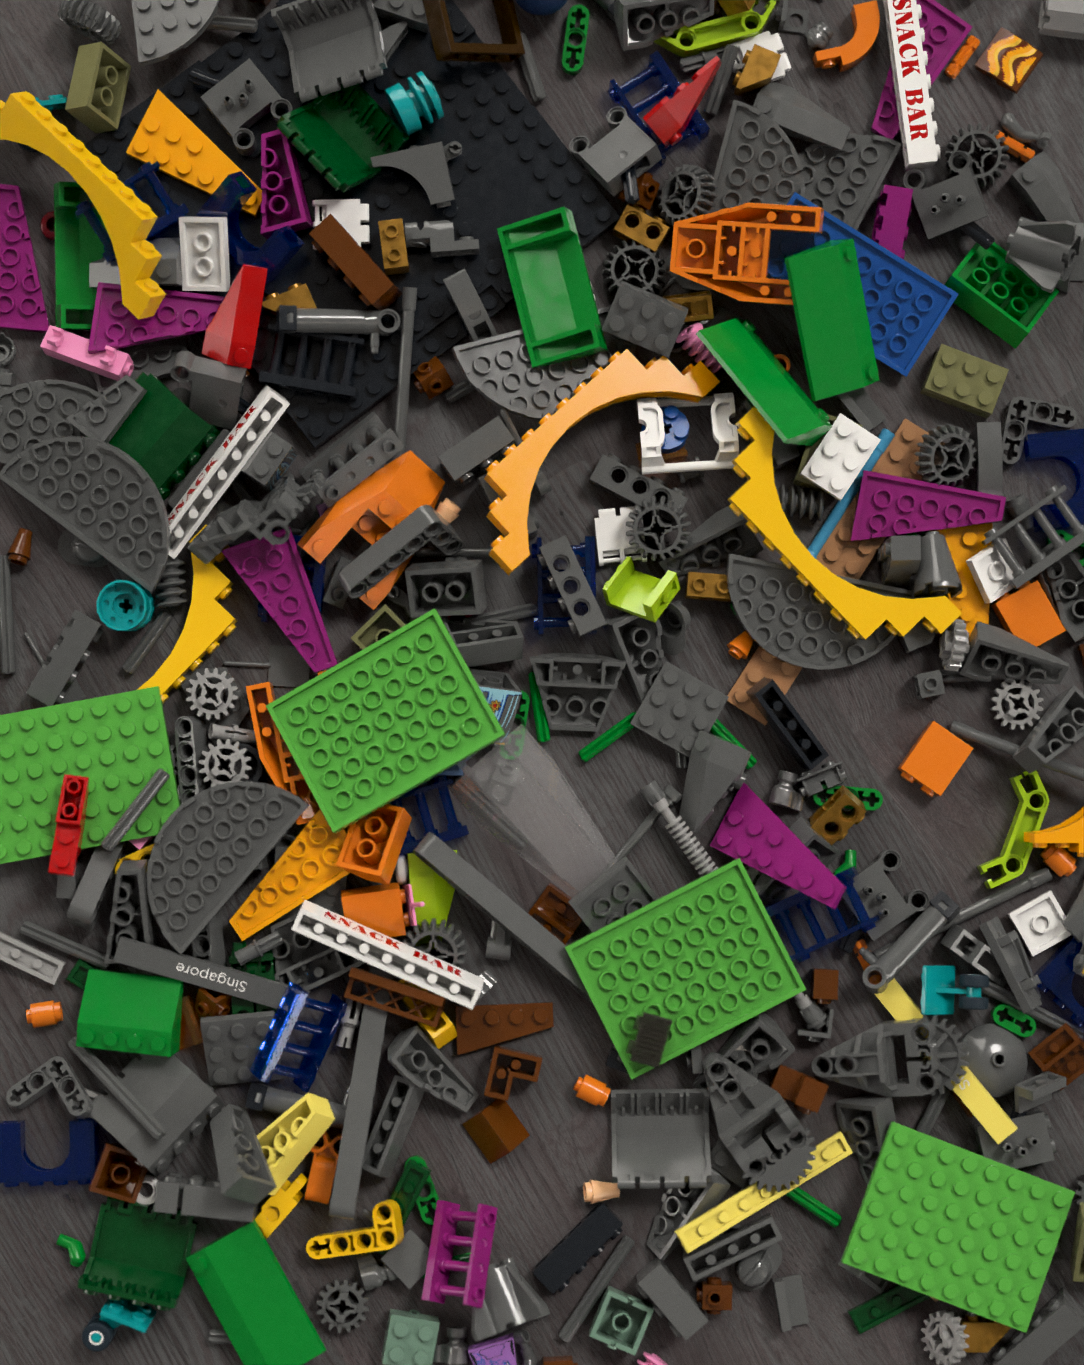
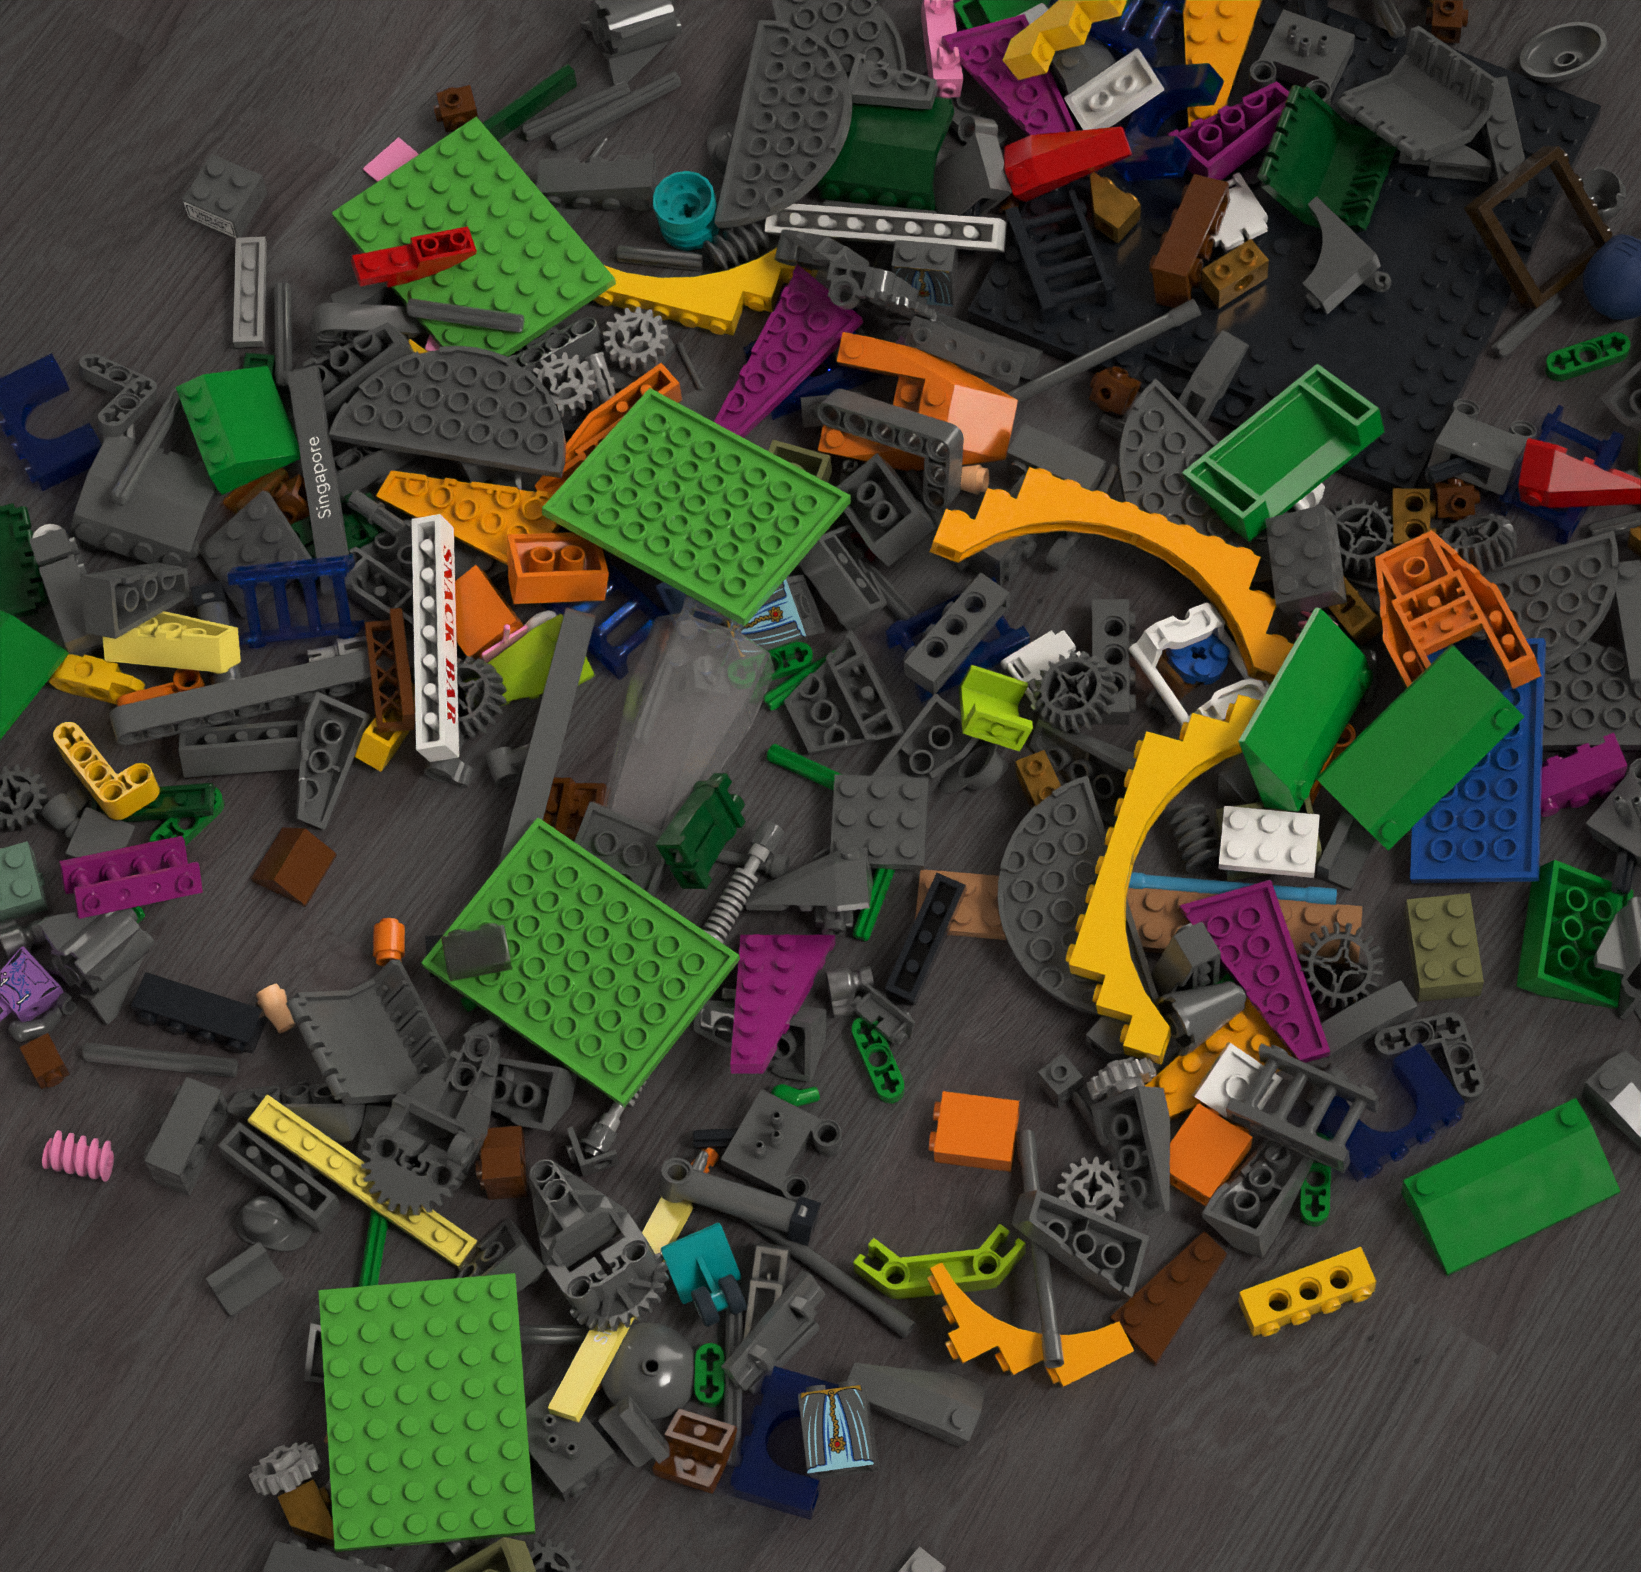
camera: 75 degrees right, 20 degrees down
(20, 550) = (696, 89): reddish brown cone -> none
(44, 1013) = (196, 349): orange brick -> none
(118, 1174) = (52, 497): reddish brown slope -> none
(314, 320) = (1090, 205): dark grey piece -> none
(414, 103) = (1406, 214): teal wheel -> none
(440, 238) = (1271, 315): dark grey plate -> none
(499, 1023) = (416, 808): reddish brown wing -> none
(508, 1064) = (368, 834): reddish brown brick -> none
(621, 1320) = (134, 1095): sand green brick -> none
(628, 837) = (701, 831): none -> dark green hips
(721, 1301) = (213, 1187): reddish brown brick -> none
(740, 646) = (989, 855): orange cone -> none
(802, 901) = (710, 1043): clear blue fence -> none
(824, 985) = (641, 1136): reddish brown brick -> none
(832, 812) = (850, 1045): pearl gold brick -> none
(884, 1307) = (289, 1392): dark green tile -> none
(1040, 923) = (841, 1343): white plate -> none
(1059, 860) = (930, 1331): orange brick -> none

